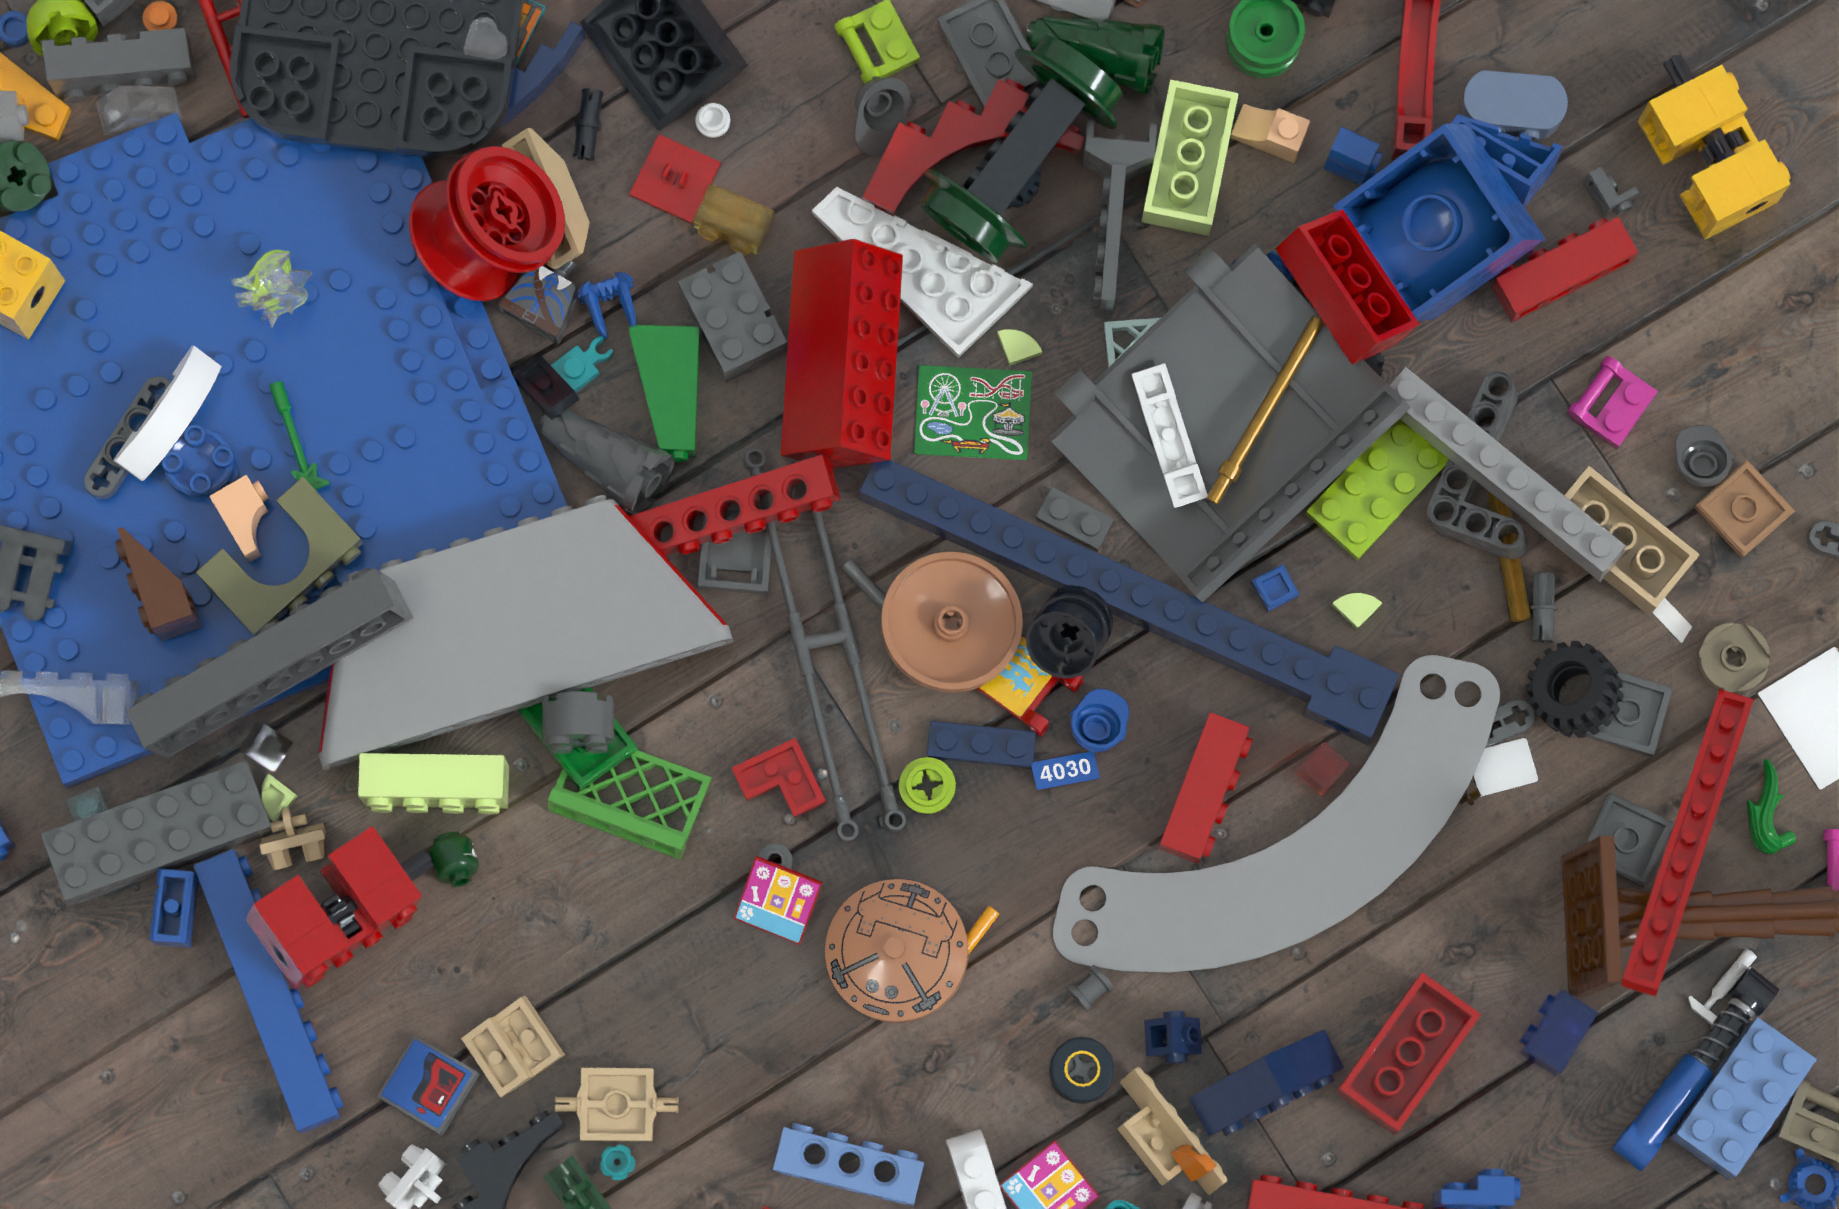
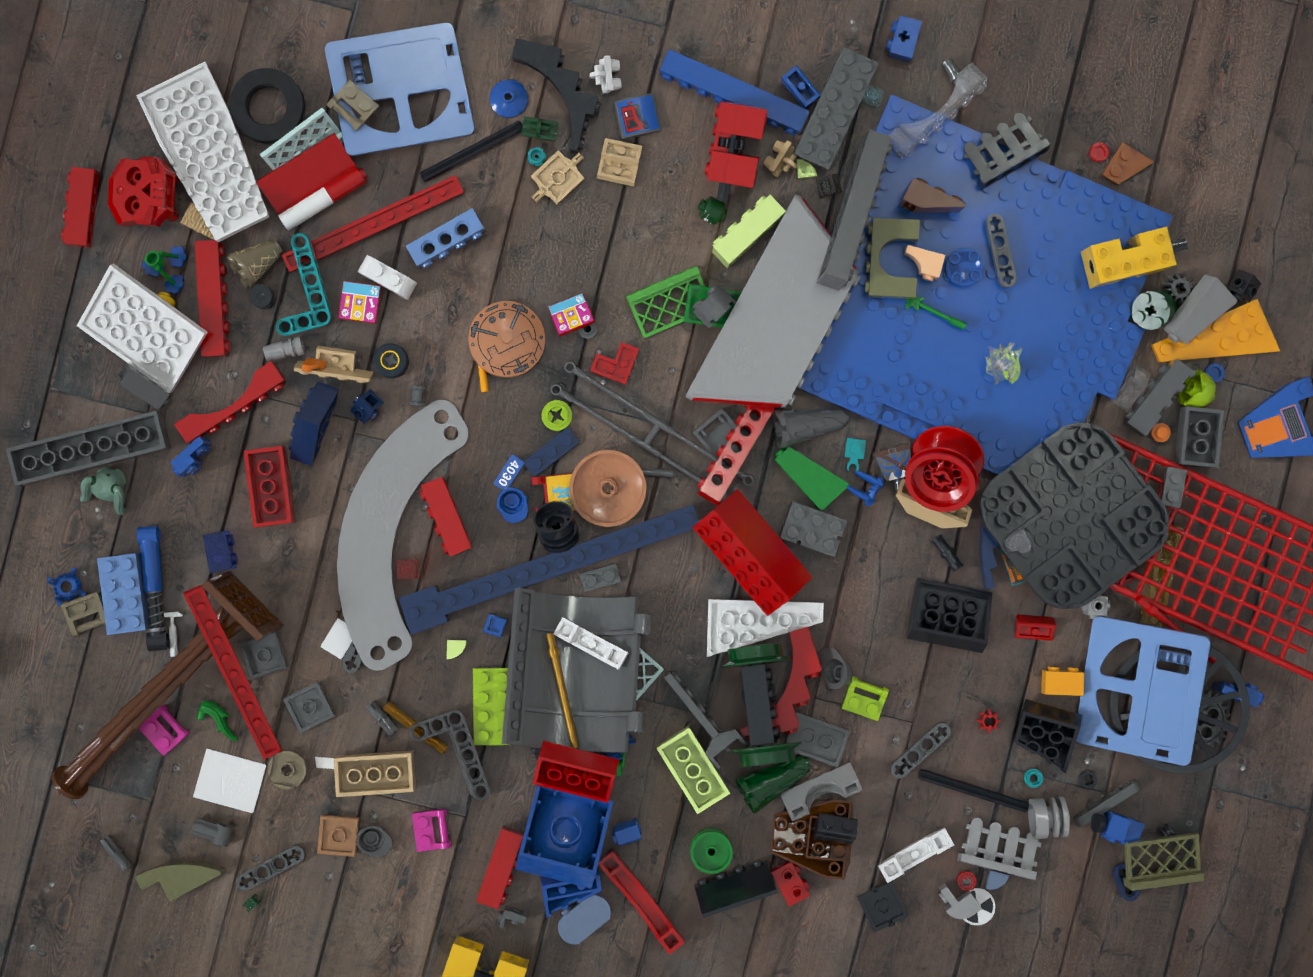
camera: 145 degrees right, 10 degrees up
(170, 414) = (993, 274): white slope -> none
(546, 387) = (858, 429): black plate -> none
(674, 178) = (891, 565): red piece -> none
(712, 120) = (899, 602): white plate -> none
(733, 220) = (851, 569): clear yellow brick -> none
(973, 412) = (681, 583): green sticker -> none
(1018, 346) = (689, 626): yellowish green tile -> none
(1271, 131) = (671, 812): light nougat arch -> none
(1507, 477) = (440, 754): light grey brick -> none
(1556, 670) = (350, 687): black tyre -> none

